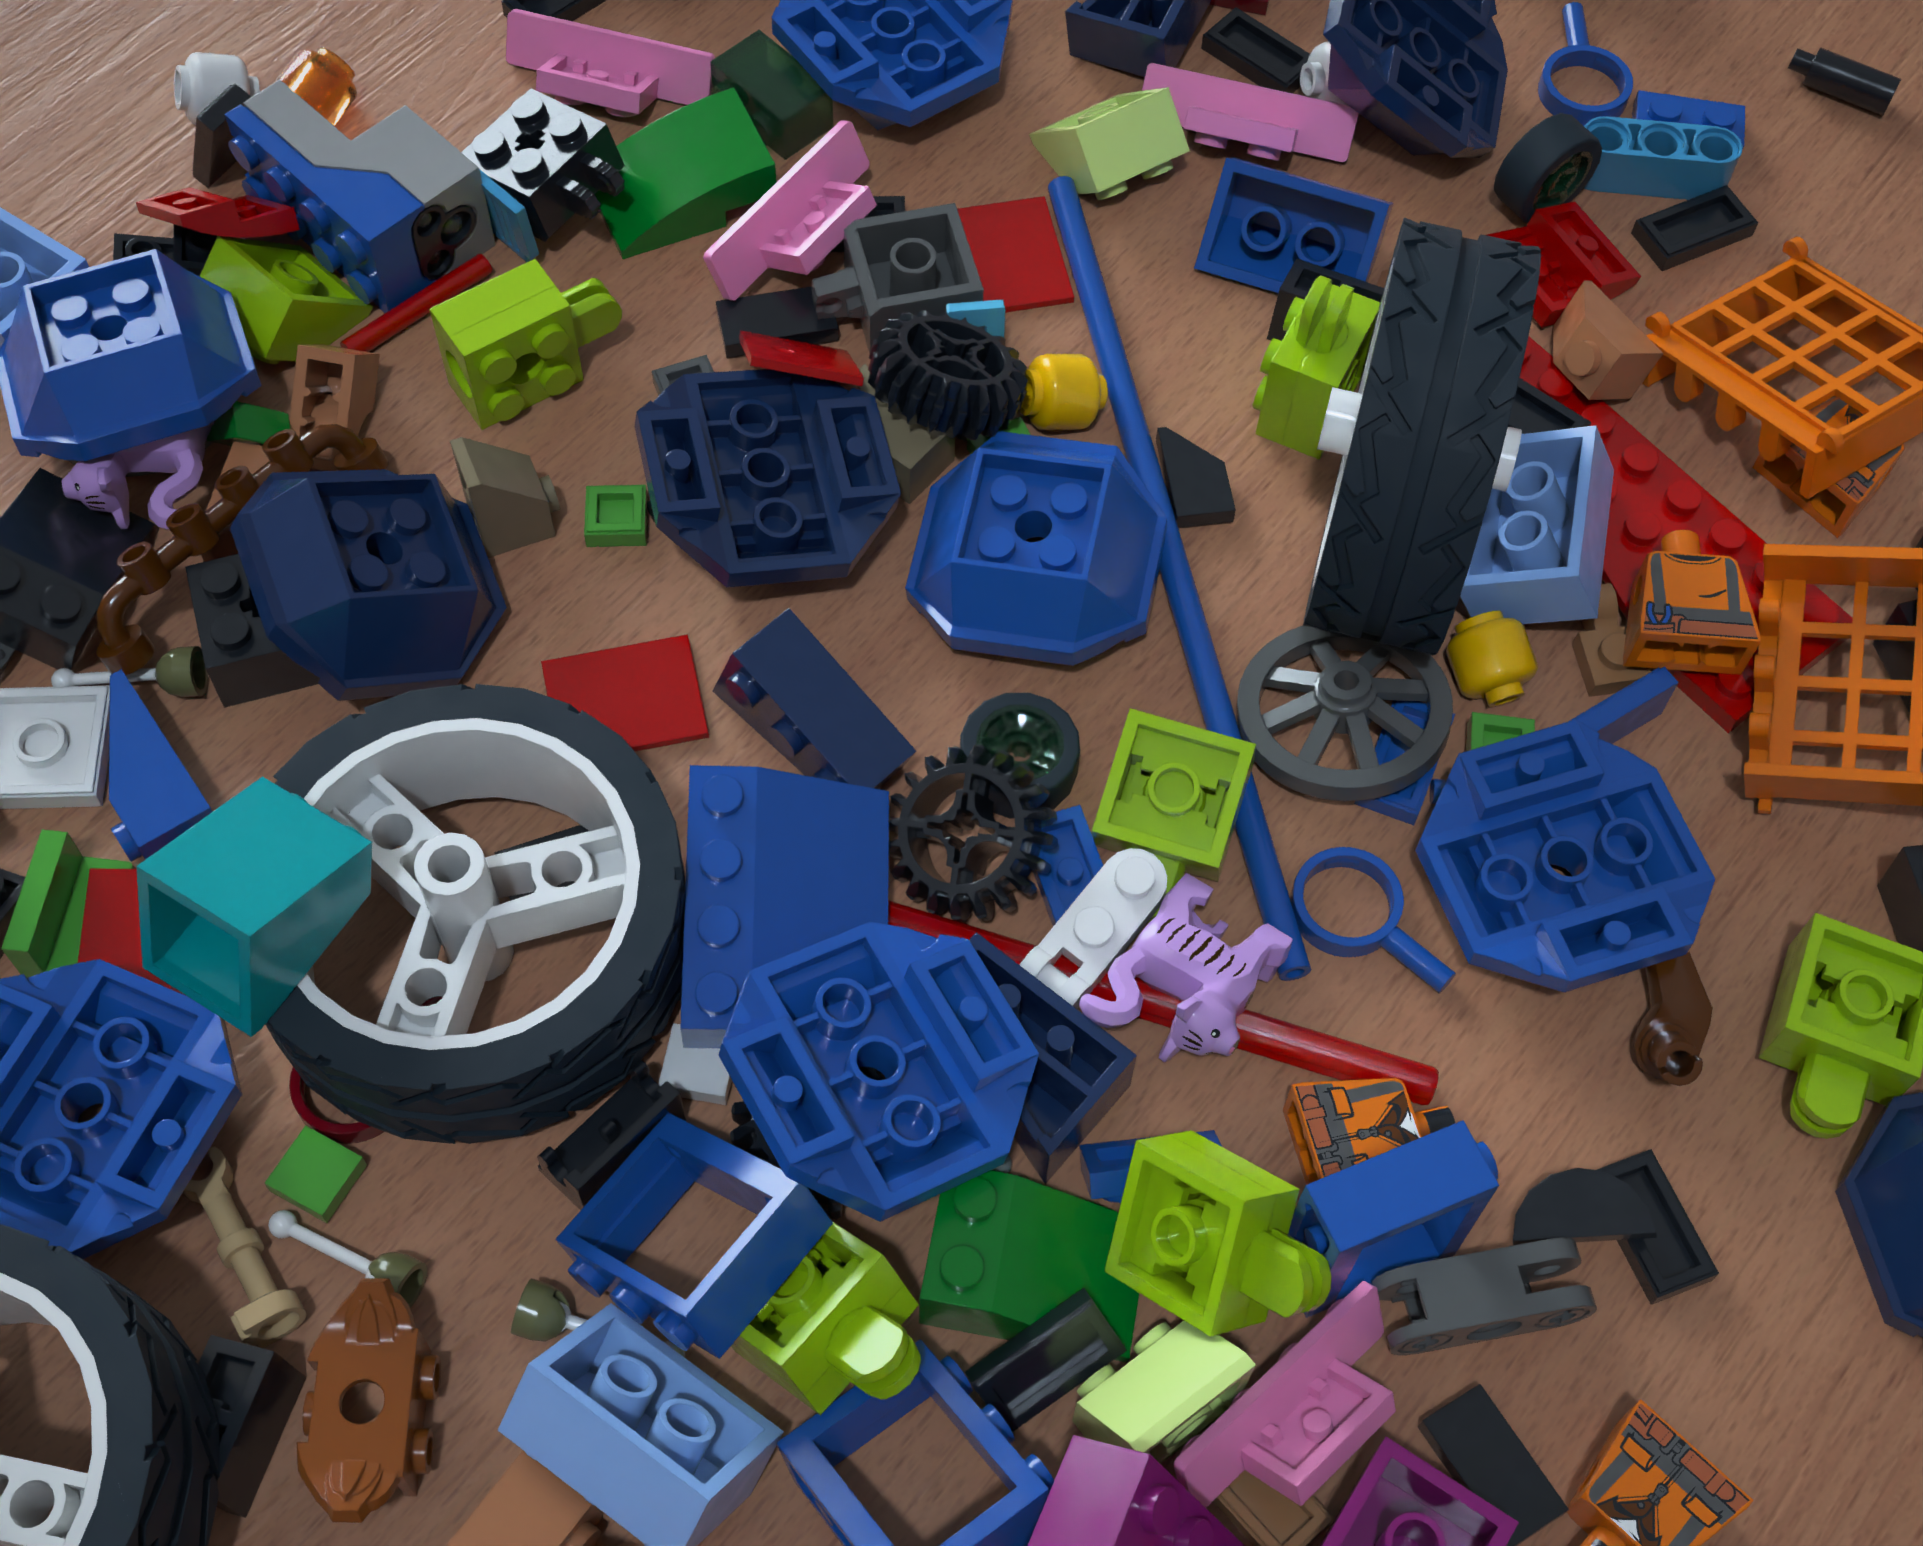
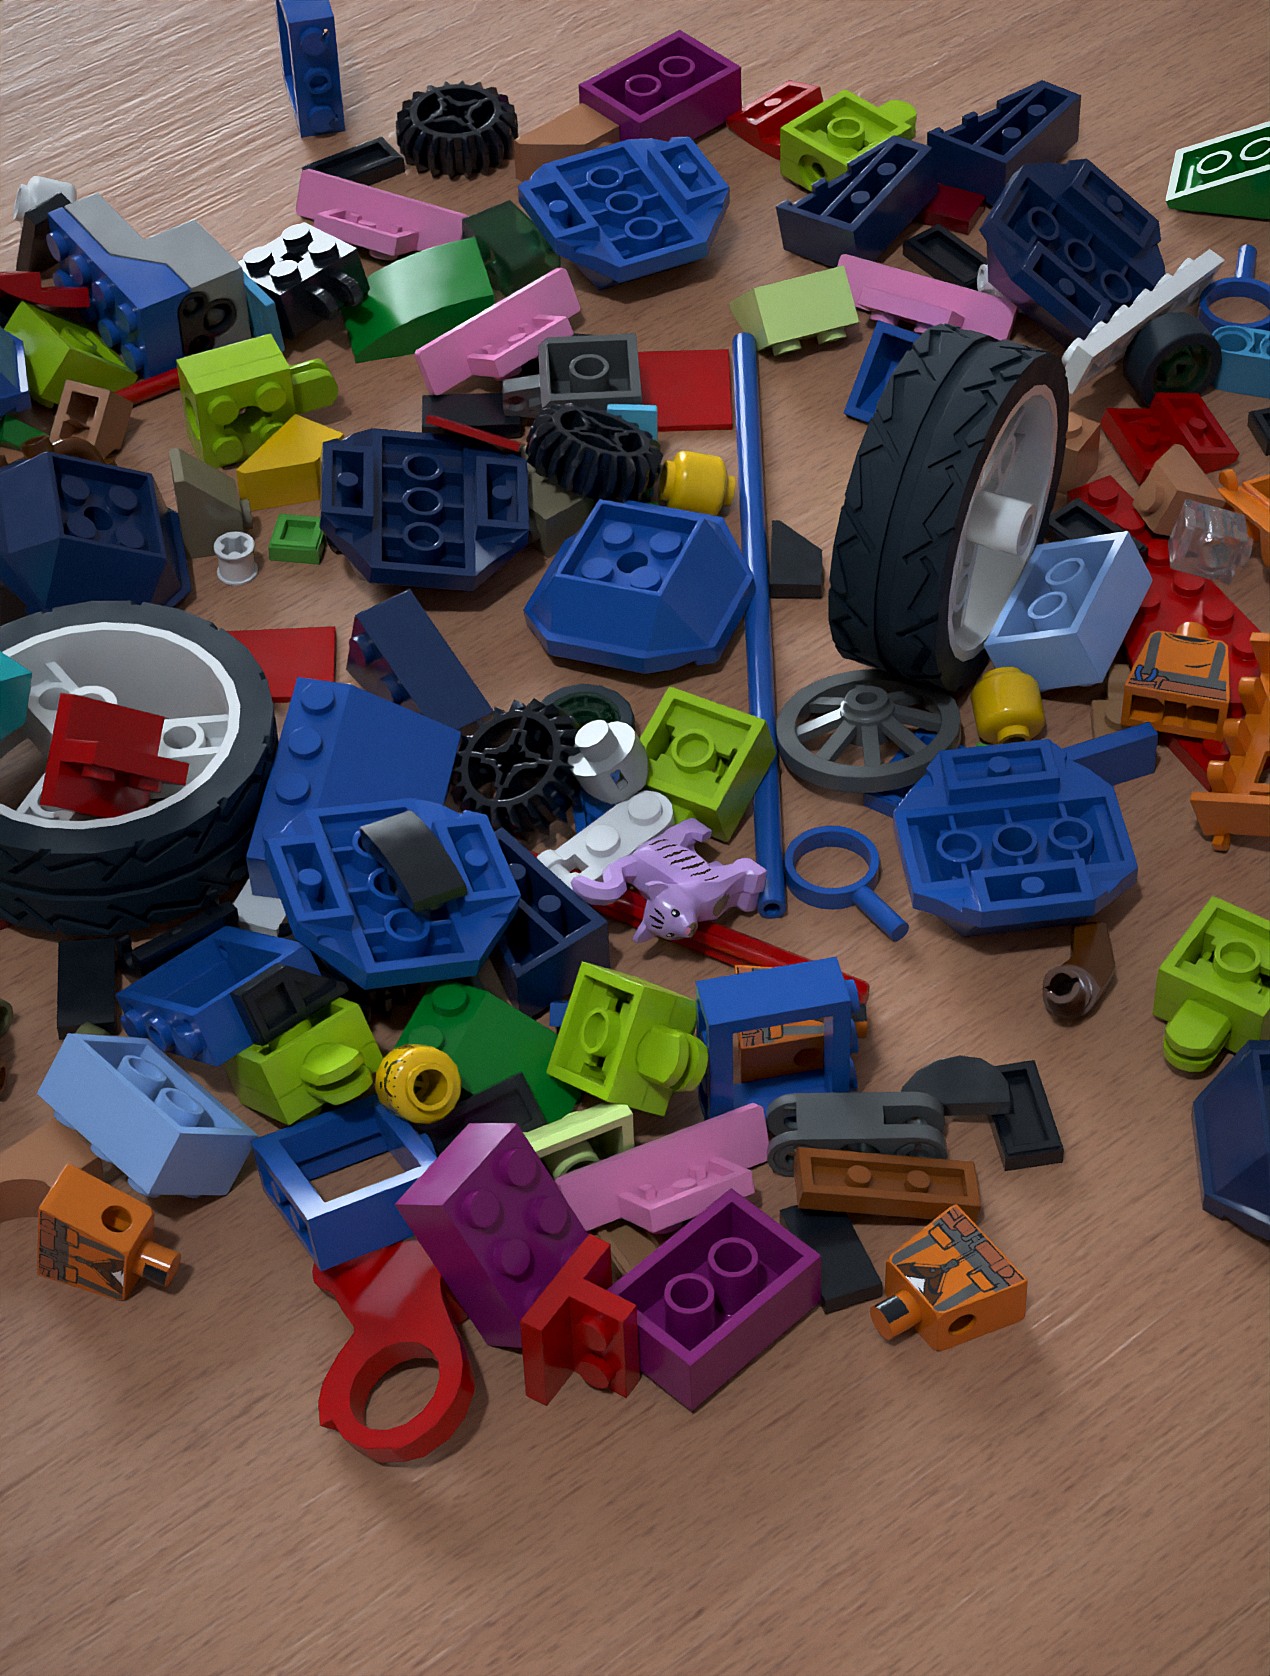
camera: 15 degrees right, 15 degrees down
(321, 81) = (138, 207): clear orange head -> none
(488, 938) = (105, 759): none -> red bracket
(510, 1213) = (87, 985): none -> black tile
(546, 542) = (235, 558): none -> white axle
(588, 418) = (286, 465): none -> yellow slope
(786, 1257) = (282, 999): none -> black tile
(905, 1033) = (415, 861): none -> black slope
(974, 1346) = (418, 1083): none -> yellow head
(1079, 816) = (603, 751): none -> light grey piece
(1505, 125) = (1109, 341): none -> white plate
(1541, 1371) = (884, 1183): none -> dark orange plate
(1658, 409) = (1206, 523): none -> clear brick

